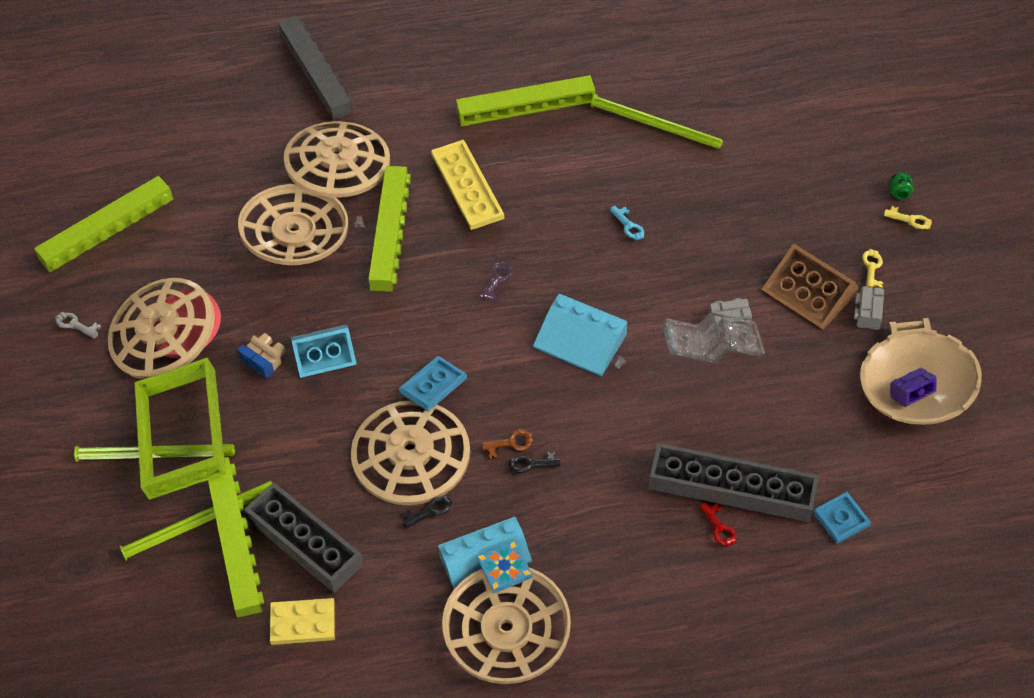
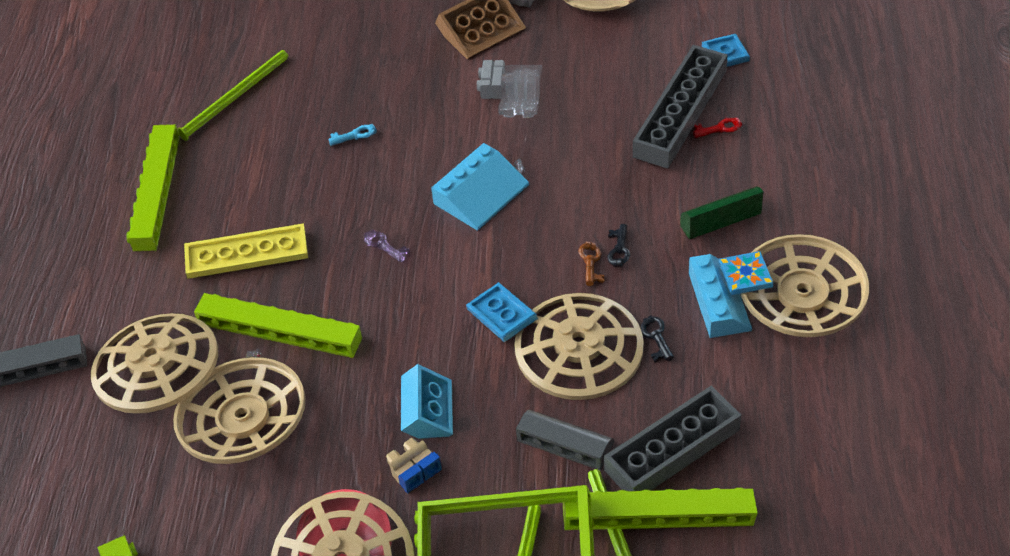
camera: 75 degrees left, 5 degrees down
(302, 621) = (769, 462): light yellow plate -> none
(304, 457) = (563, 439): none -> dark grey brick
(591, 541) = (722, 212): none -> dark green brick

